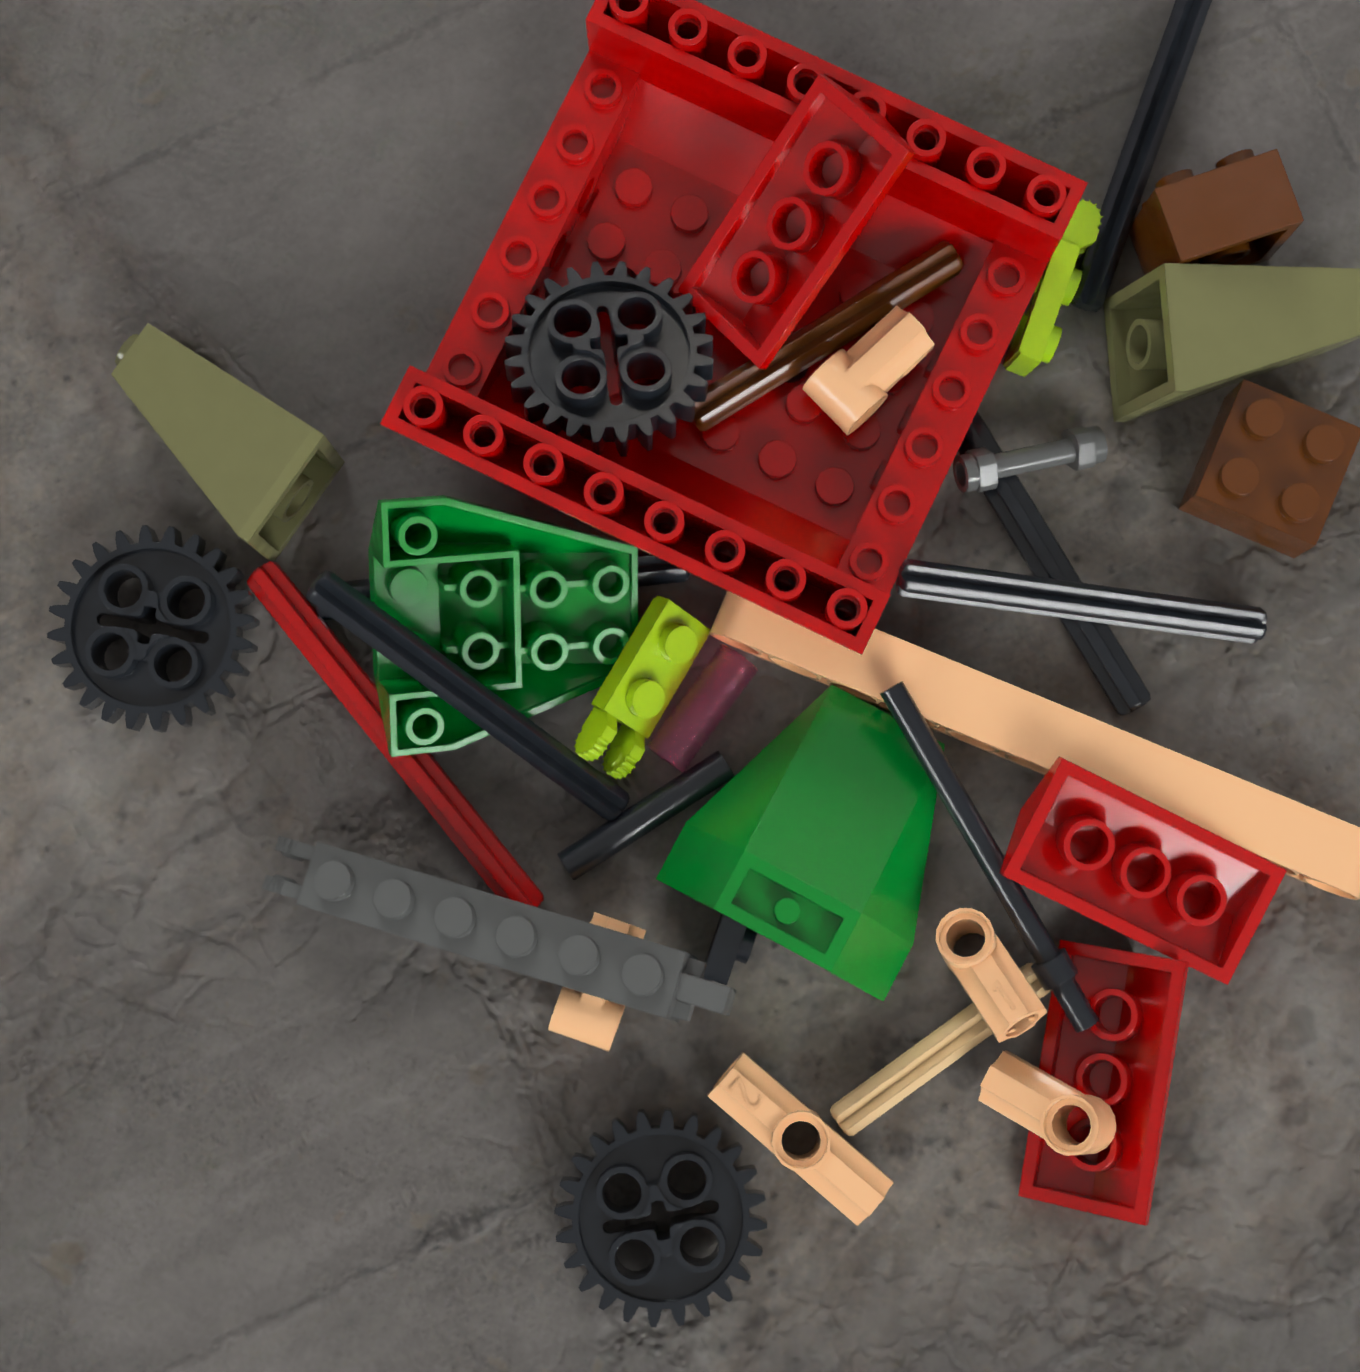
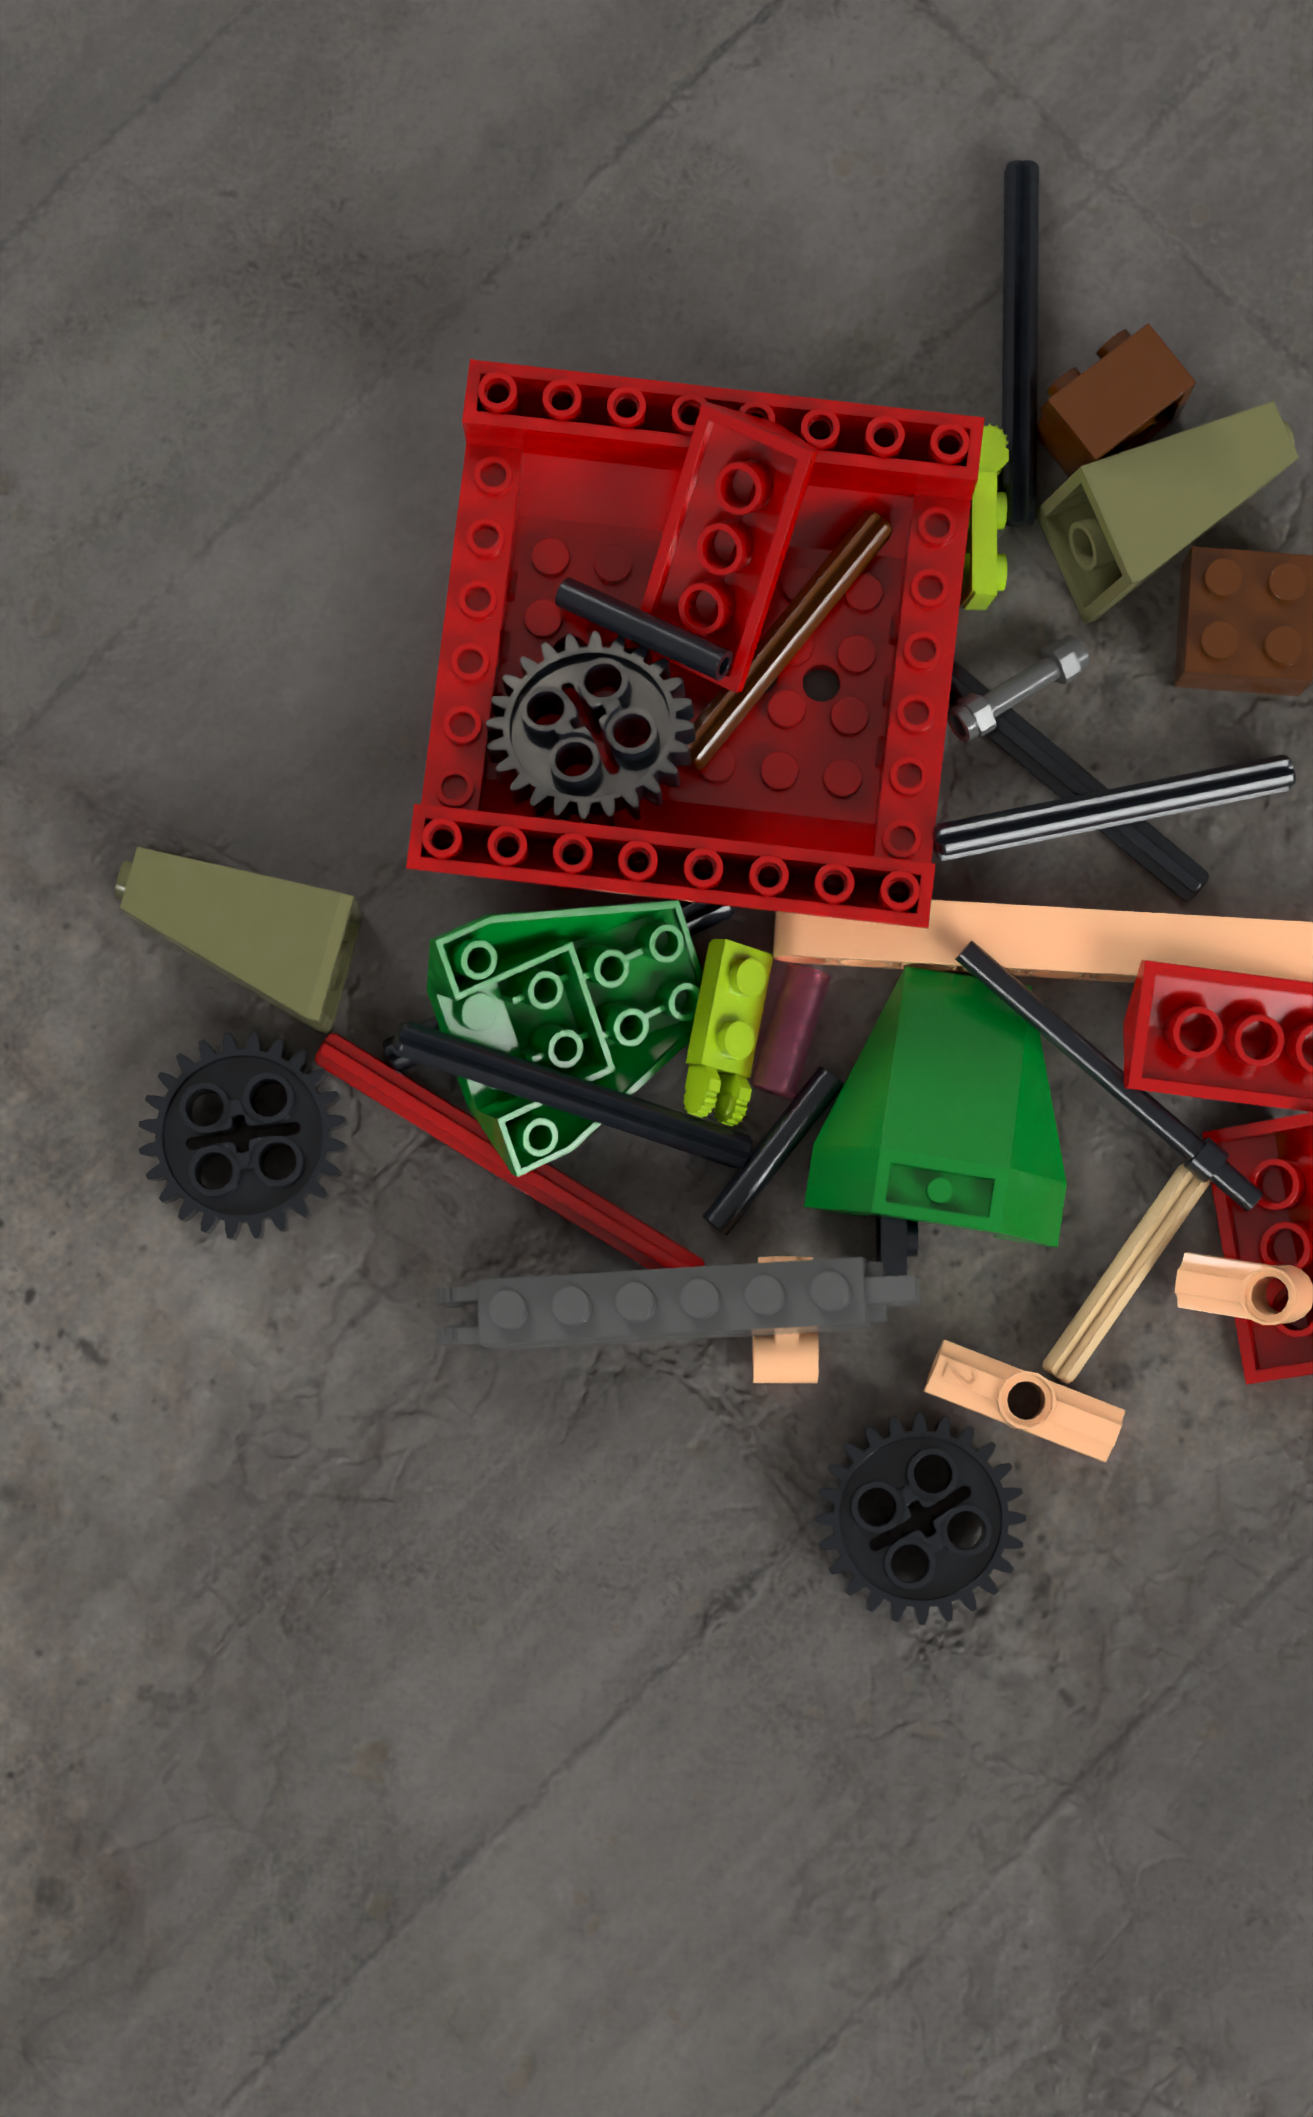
camera: 20 degrees left, 0 degrees up
(694, 279) = (644, 628): none -> black piece
(857, 381) = (832, 670): light nougat piece -> none
(989, 976) = (1148, 1186): light nougat piece -> none

